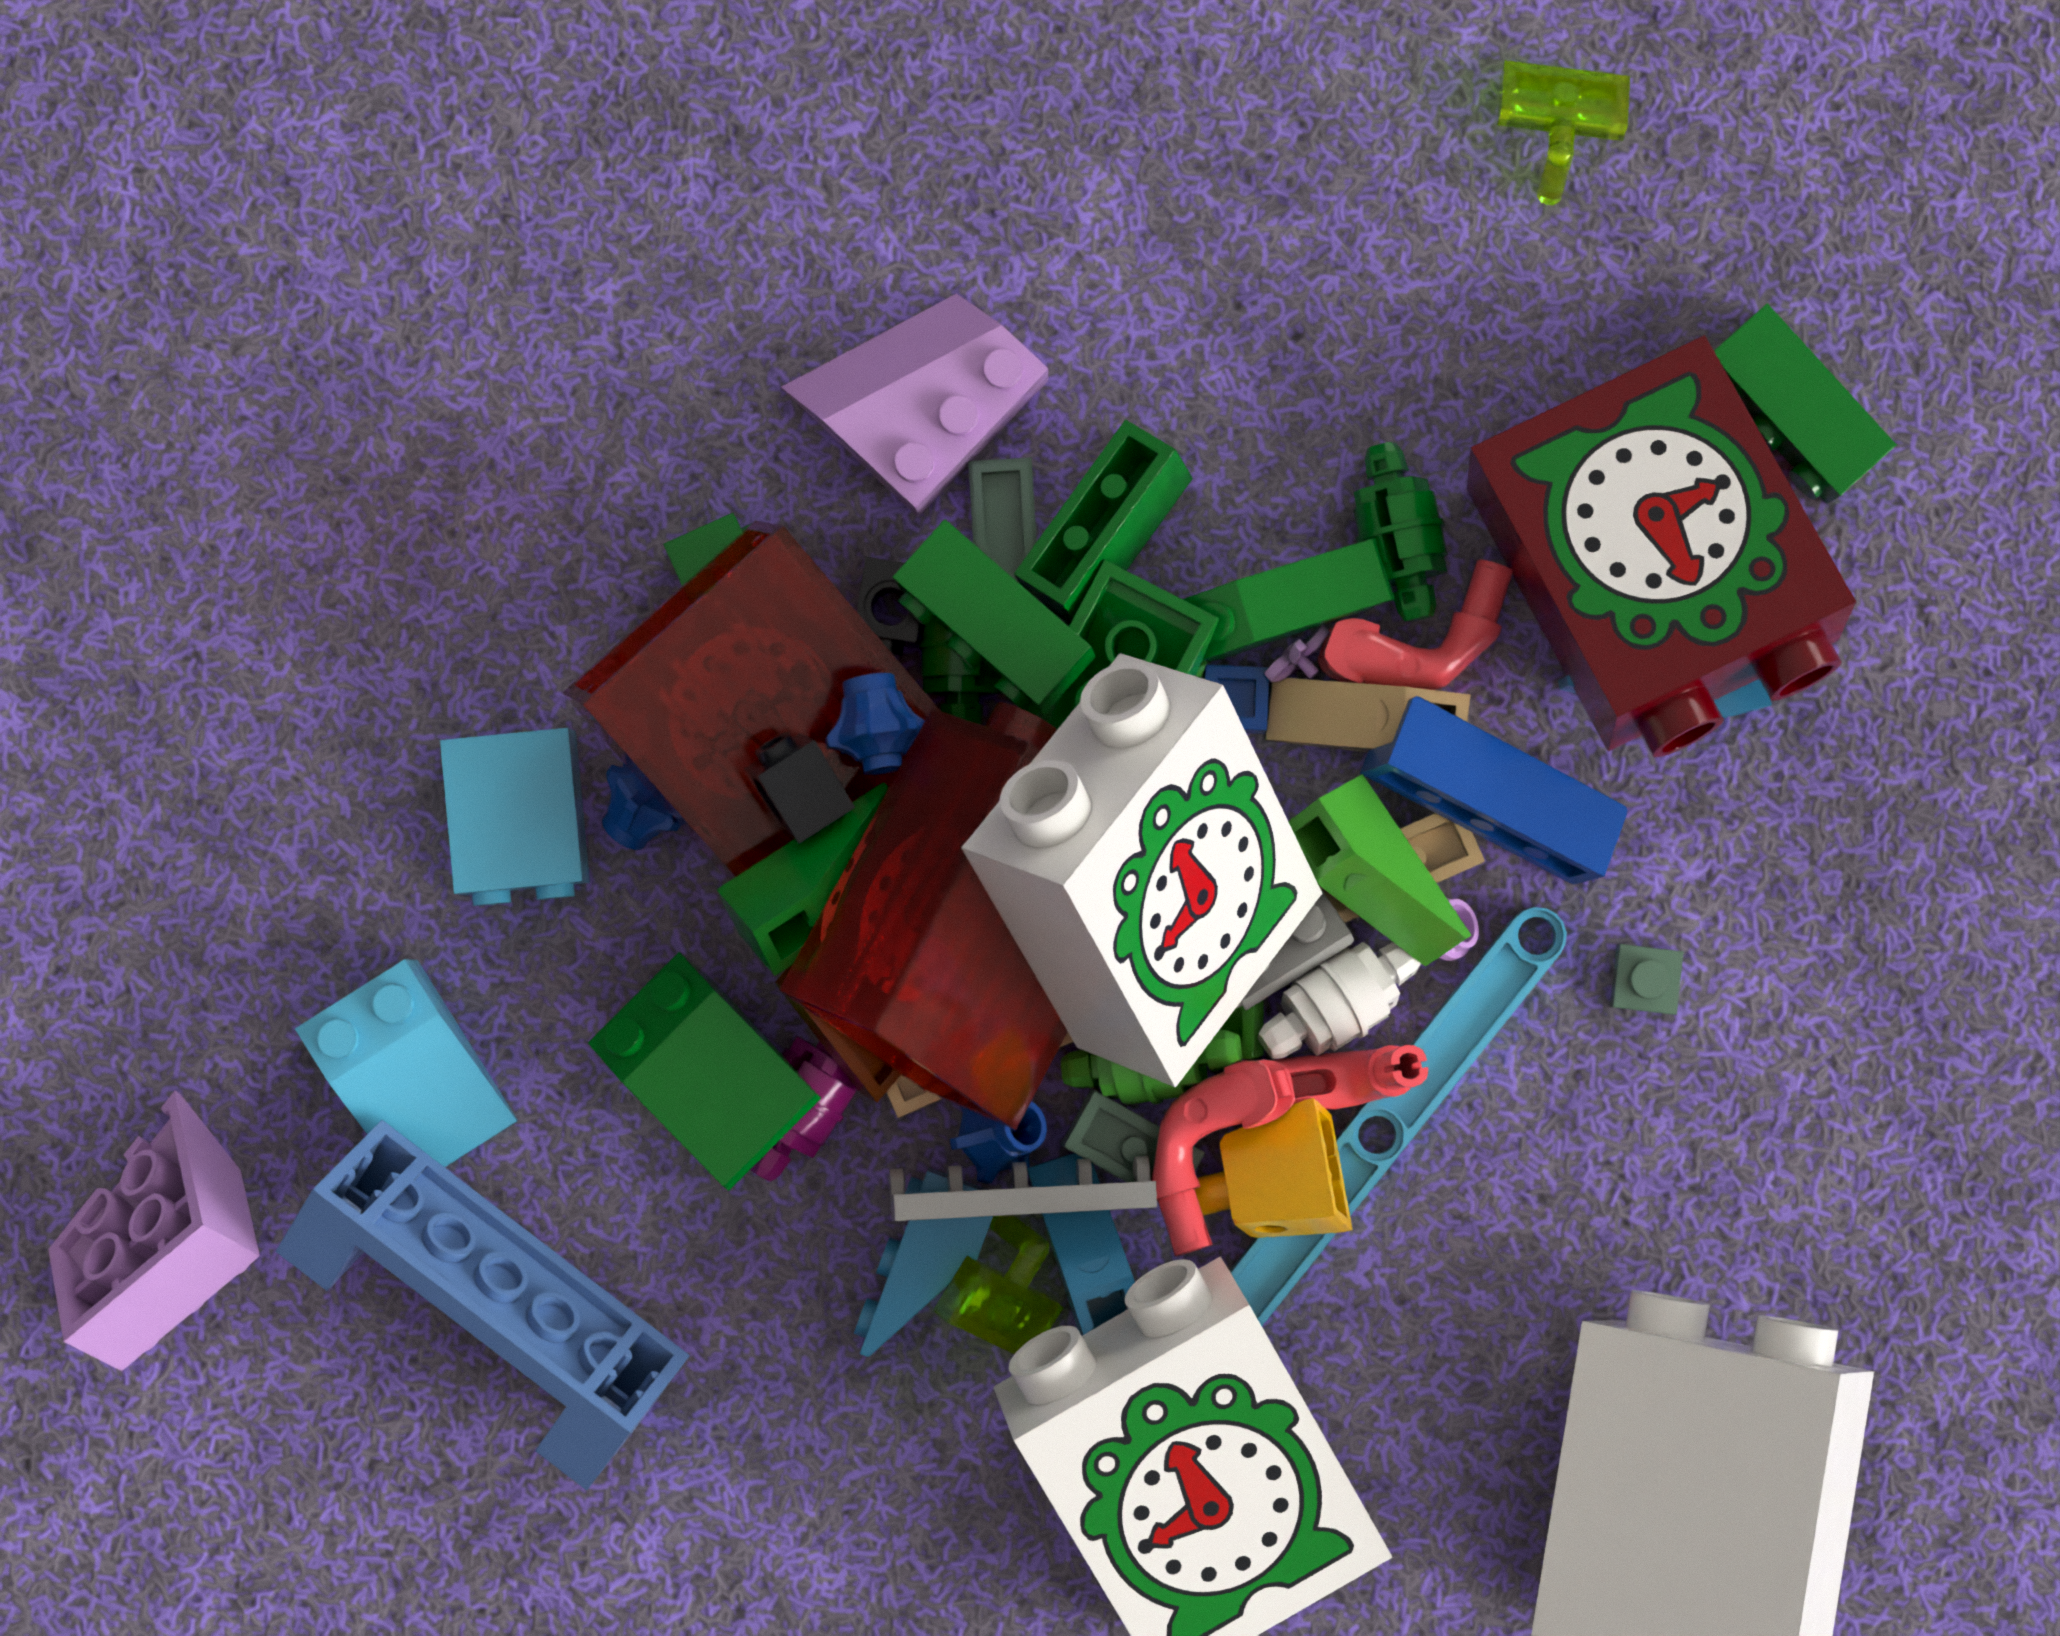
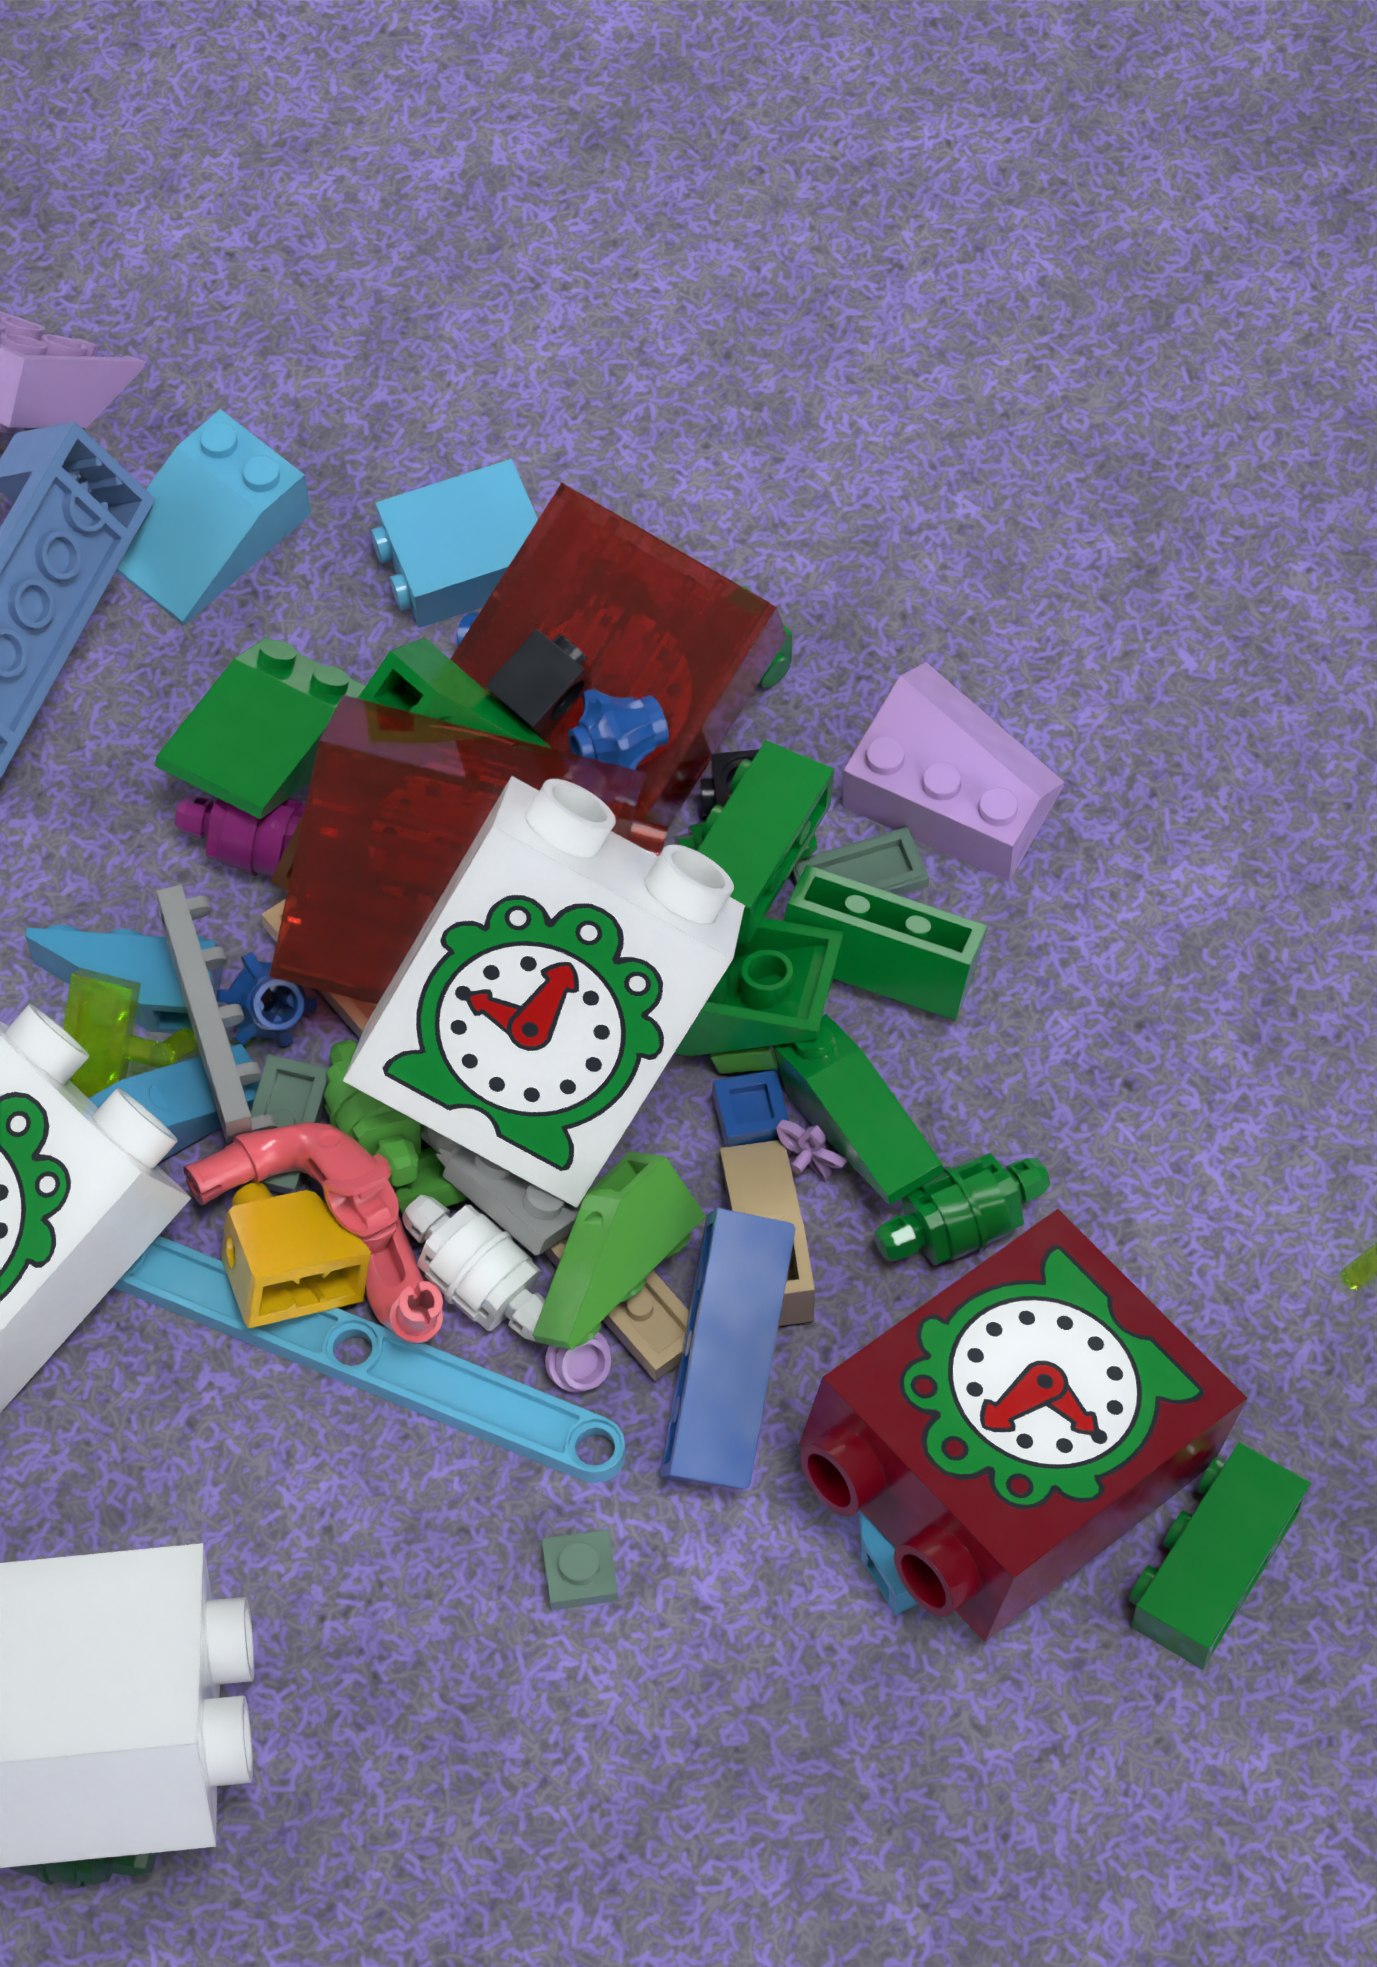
camera: 75 degrees right, 25 degrees down
(1361, 654) = (829, 1210): coral piece -> none

